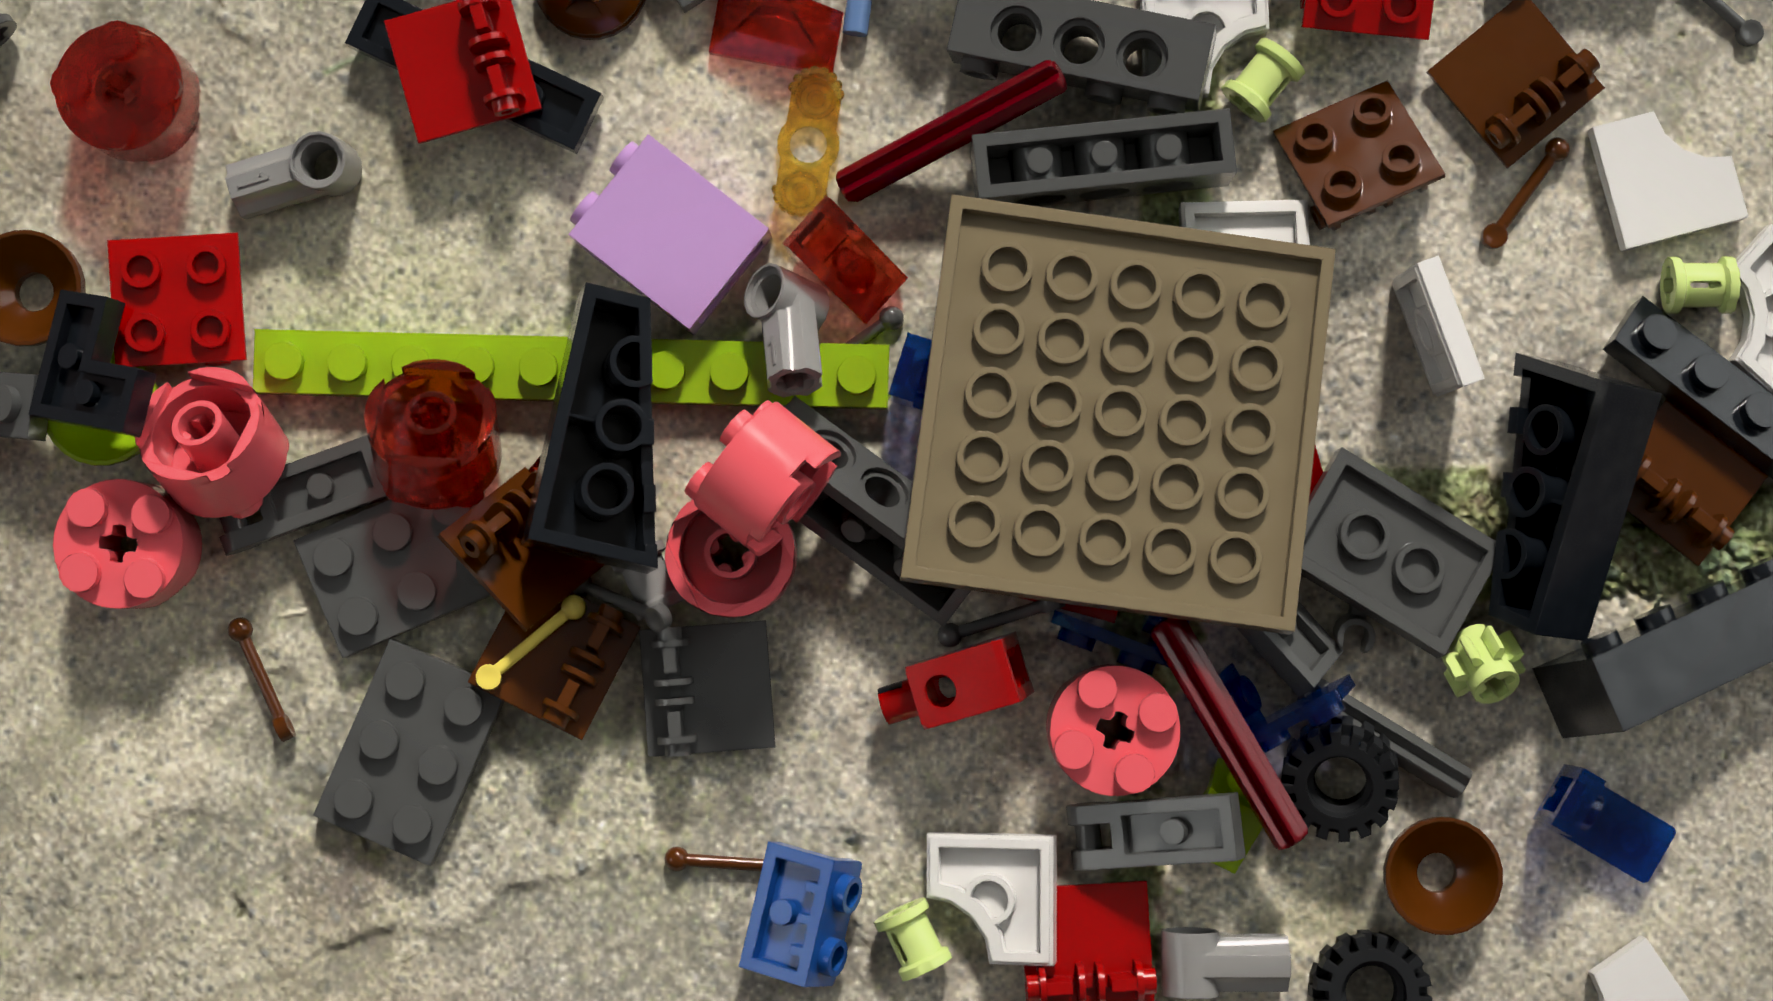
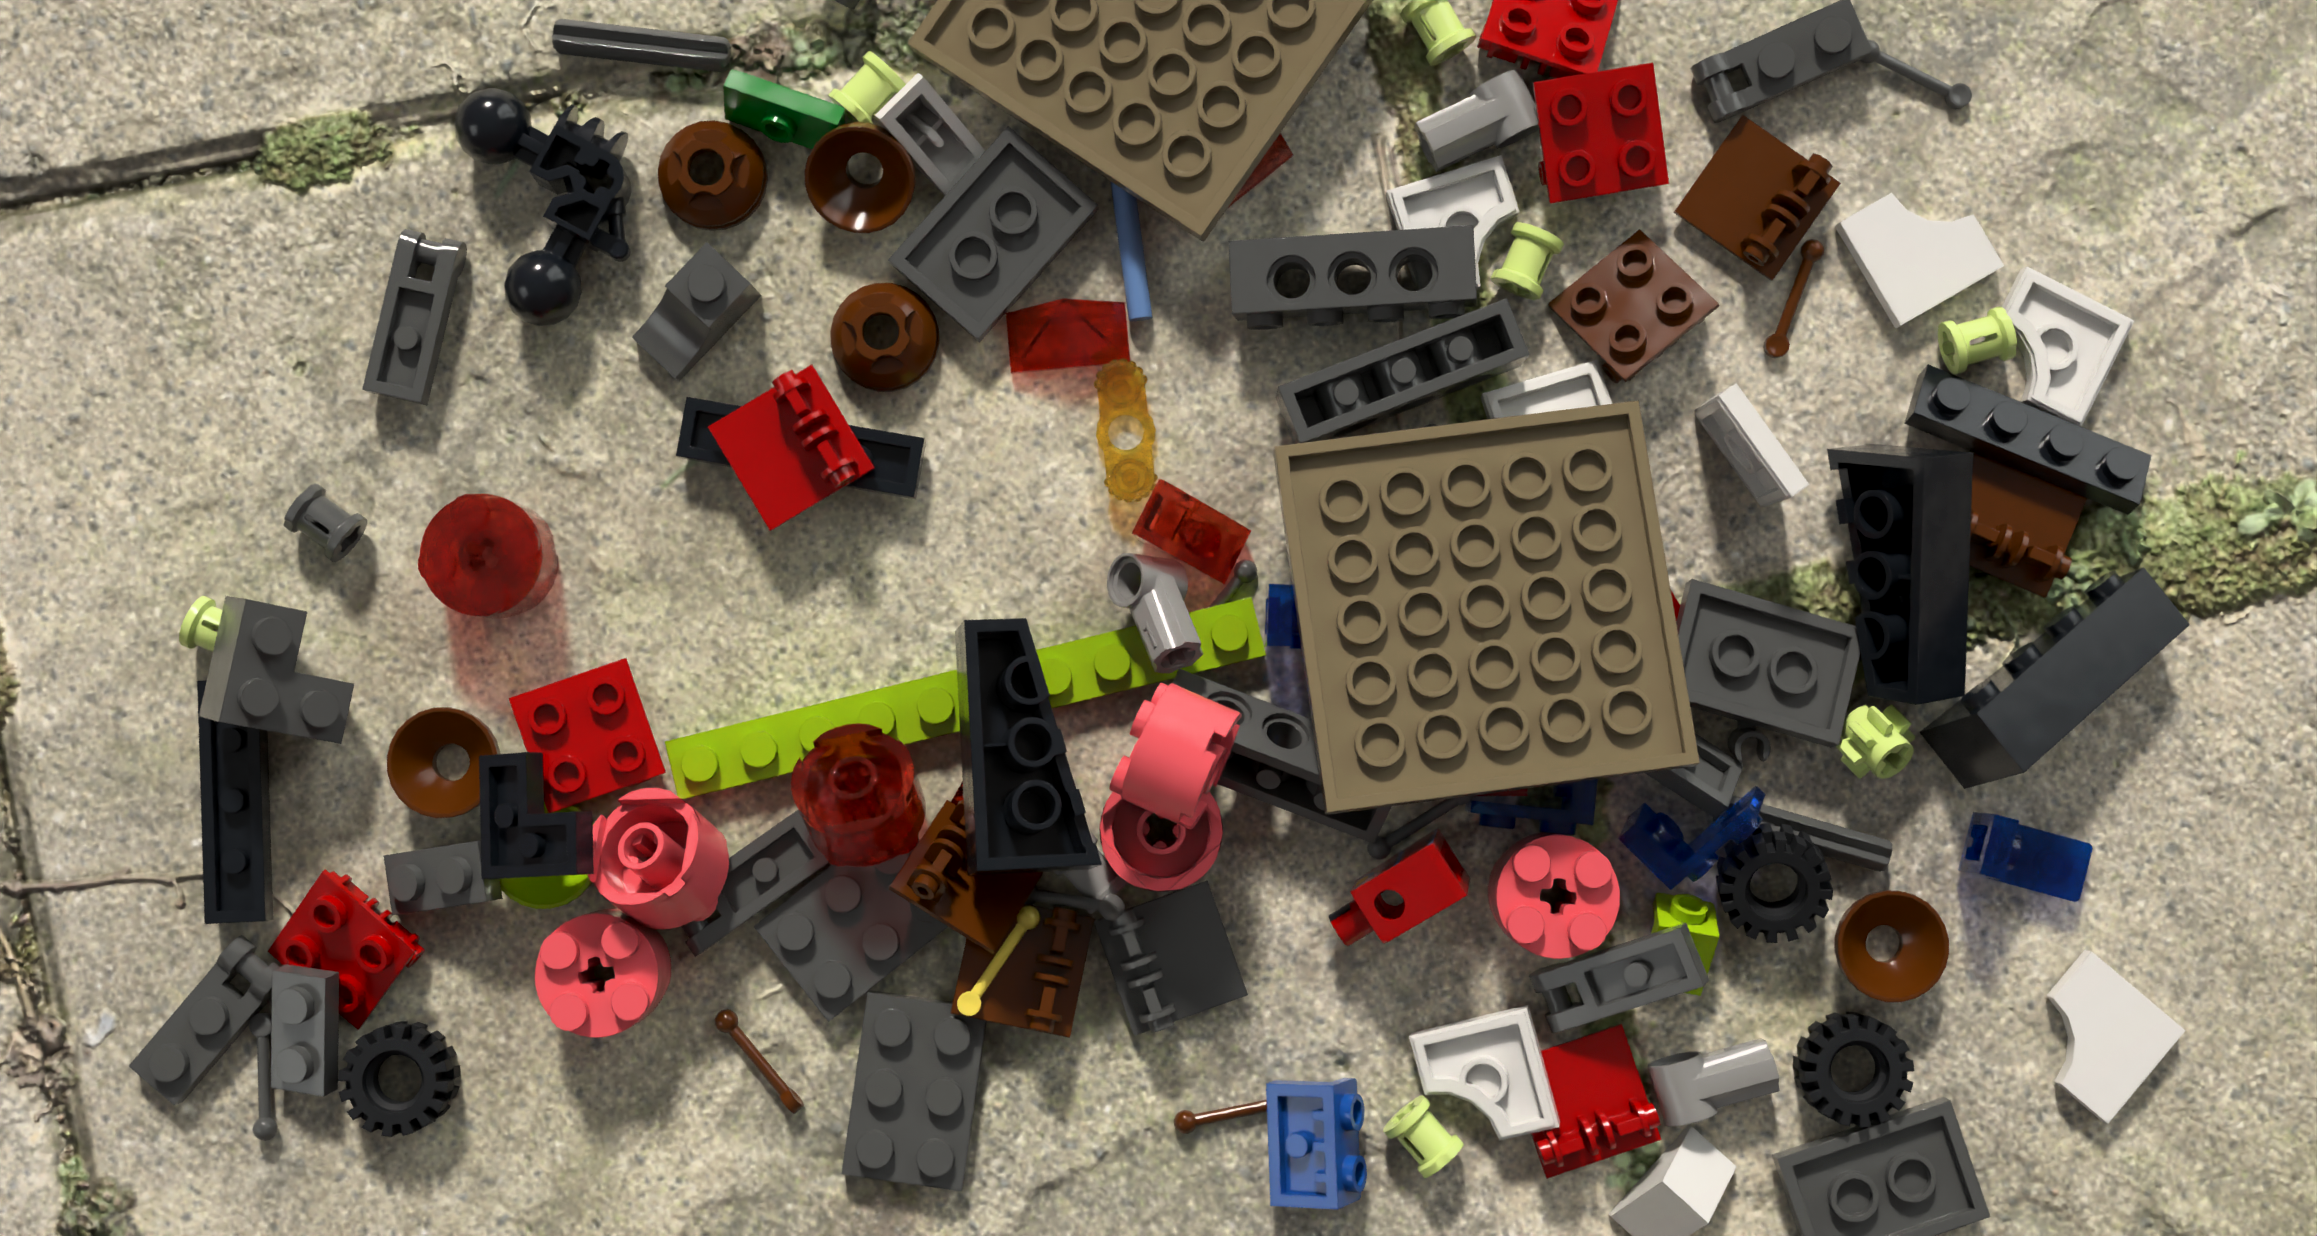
camera: 15 degrees left, 0 degrees up
(289, 176) = (657, 593): light grey piece -> none
(668, 233) = (1021, 549): lavender brick -> none
(951, 131) = (1256, 386): dark red axle -> none
(1229, 732) = (1663, 870): dark red axle -> none

